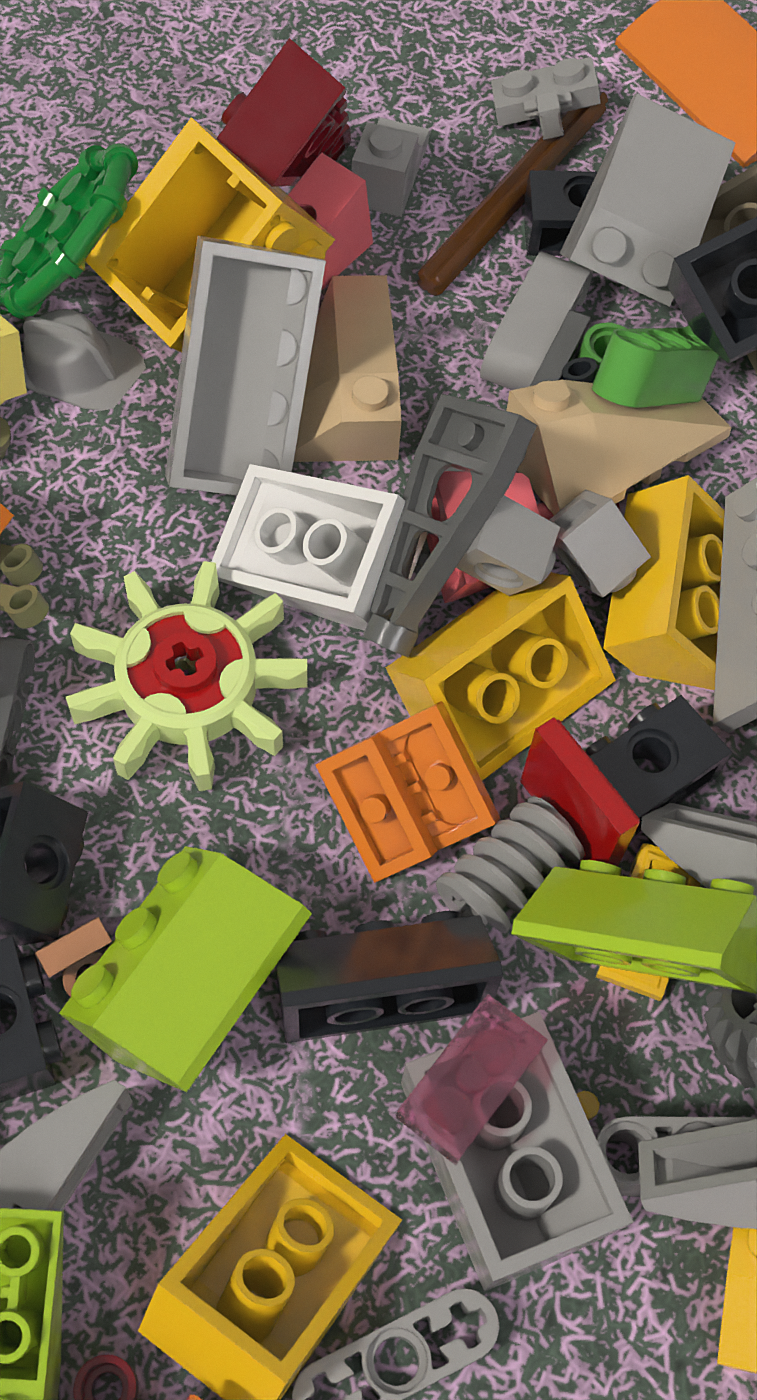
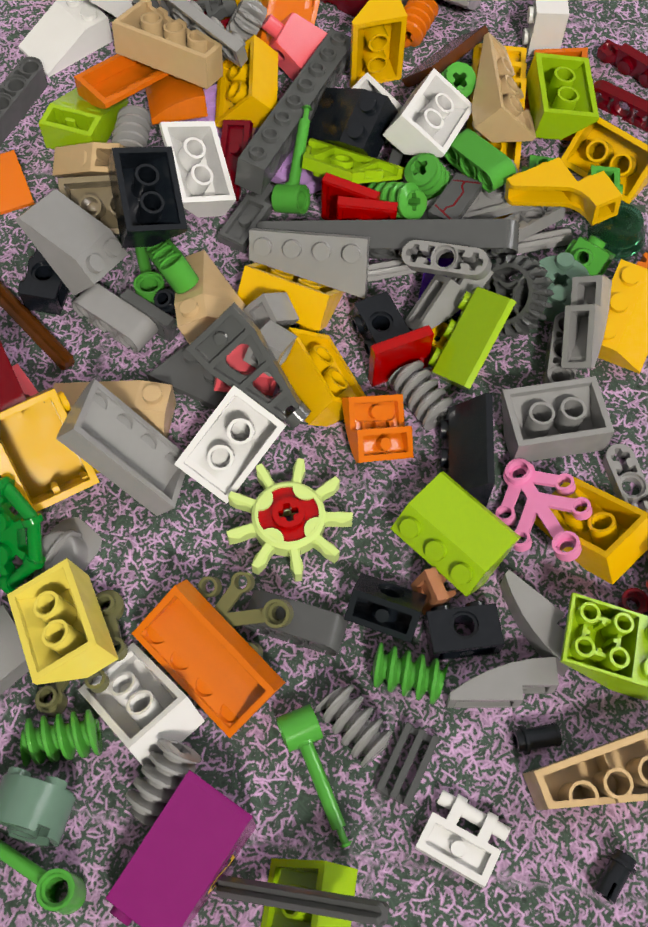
camera: 75 degrees left, 0 degrees up
(293, 1141) = (540, 505): none -> bright pink plant
(471, 1079) = (534, 417): clear pink plate -> none

